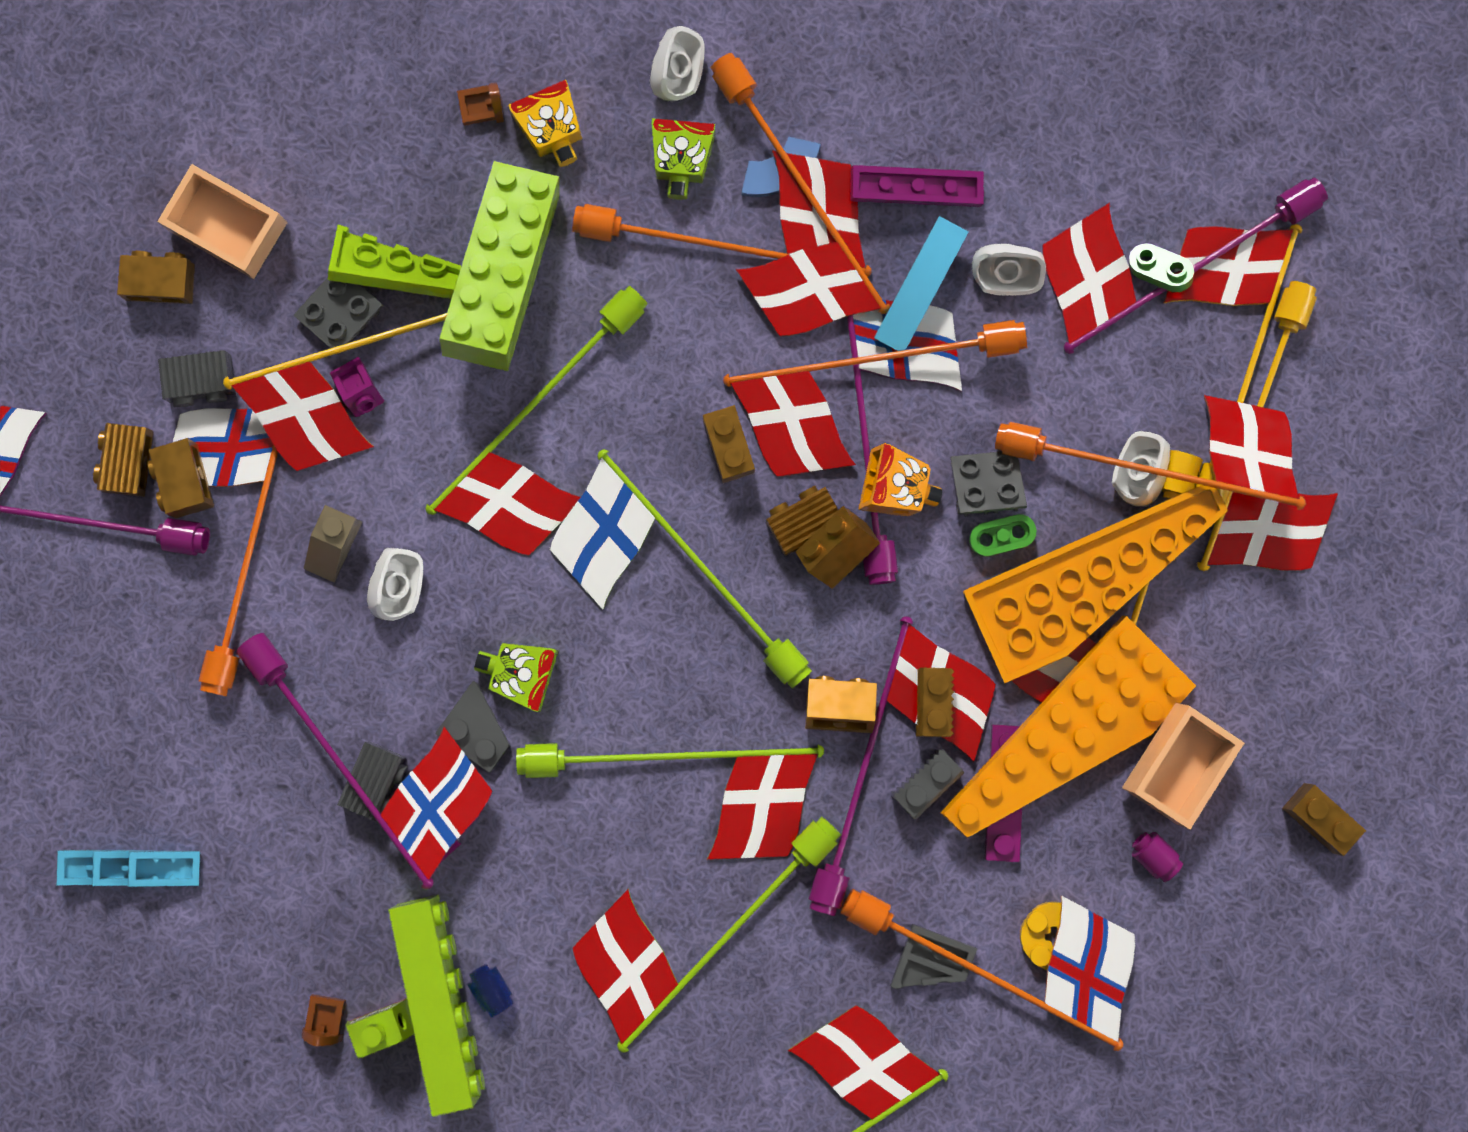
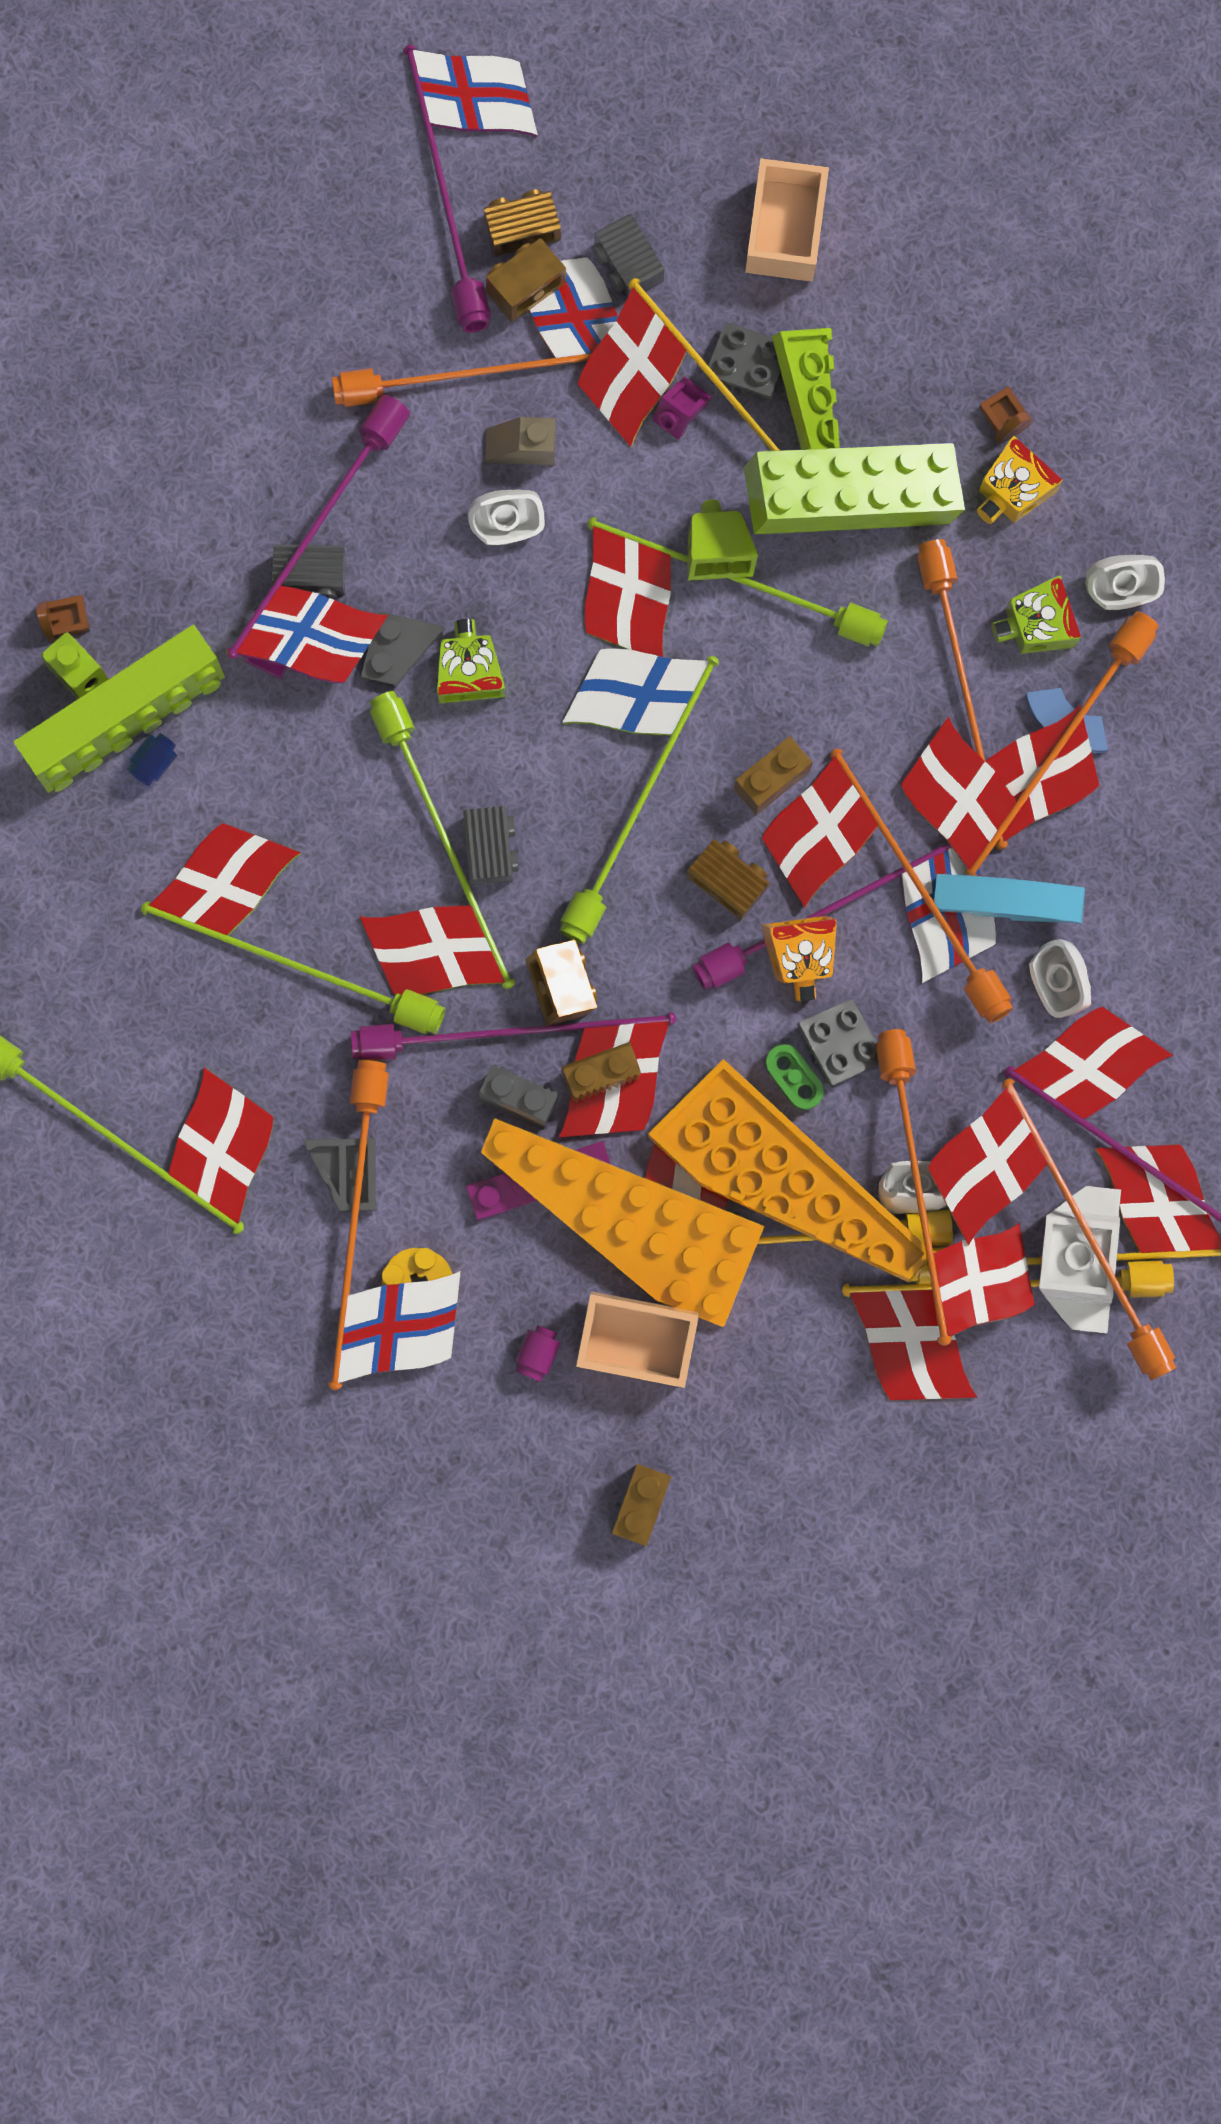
camera: 65 degrees right, 5 degrees down
(128, 868) = (137, 380): medium azure slope -> none
(156, 278) = (707, 183): pearl gold brick -> none
(499, 405) = (719, 544): none -> lime torso
(690, 719) = (488, 845): none -> dark grey brick
(837, 547) = (714, 916): pearl gold brick -> none
(917, 186) = (1105, 857): magenta plate -> none
(1157, 399) = (992, 1167): none -> flag
(1159, 268) = (1128, 1126): plate -> none
(1255, 352) = (1069, 1268): none -> white piece

